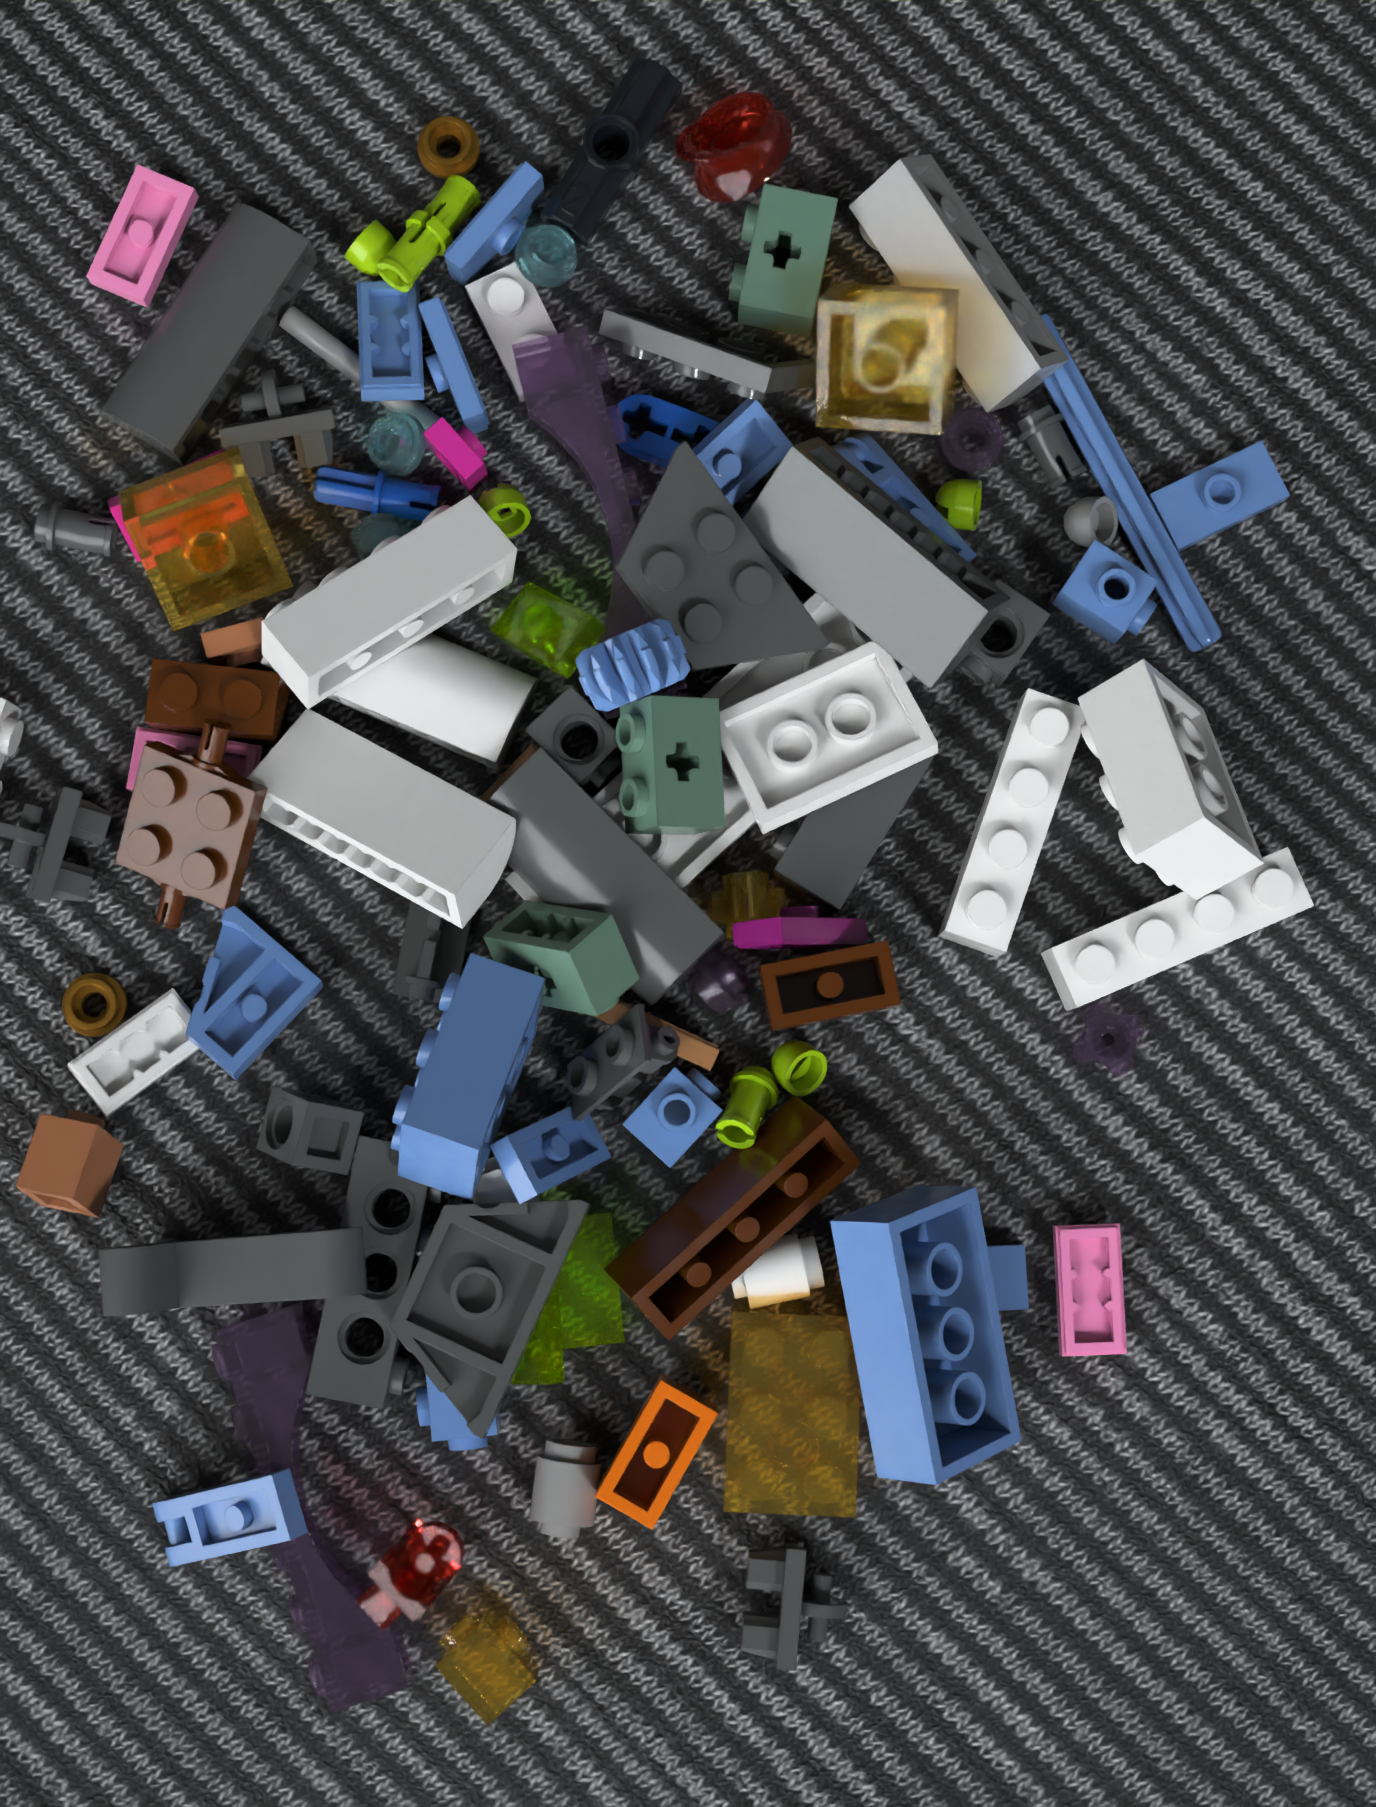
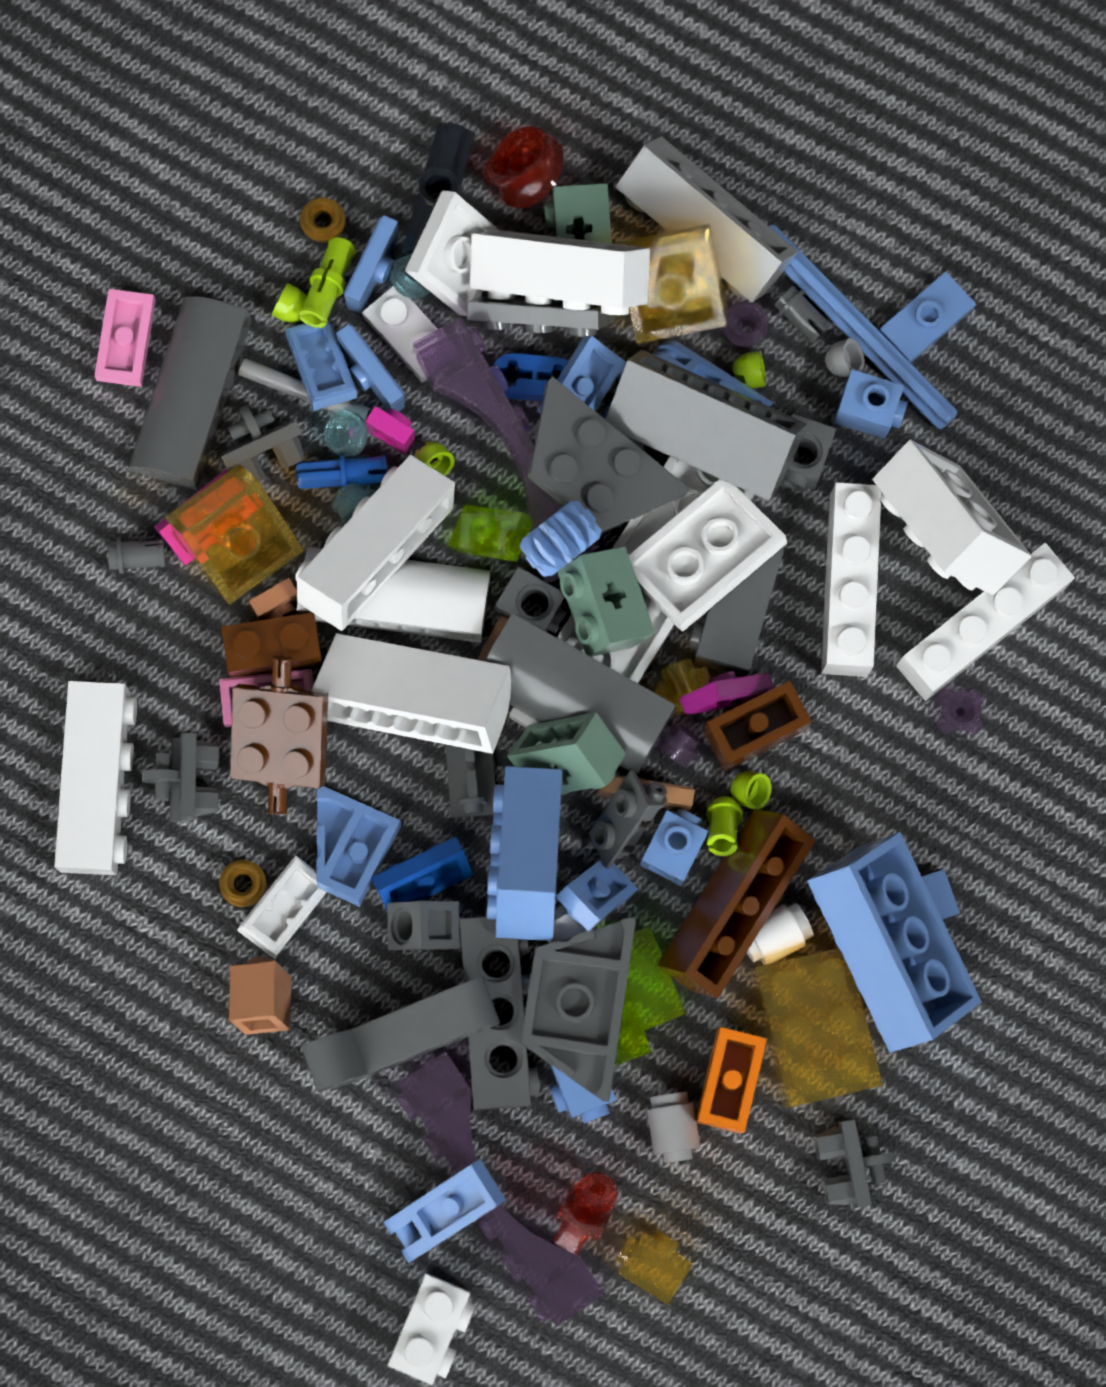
camera: 20 degrees left, 5 degrees down
(168, 1663) = (425, 1339): none -> white brick
(332, 1060) = (423, 874): none -> blue plate
(608, 237) = (444, 251): none -> white plate
(738, 299) = (560, 270): none -> white brick
(1089, 1289) = (997, 887): bright pink plate -> none

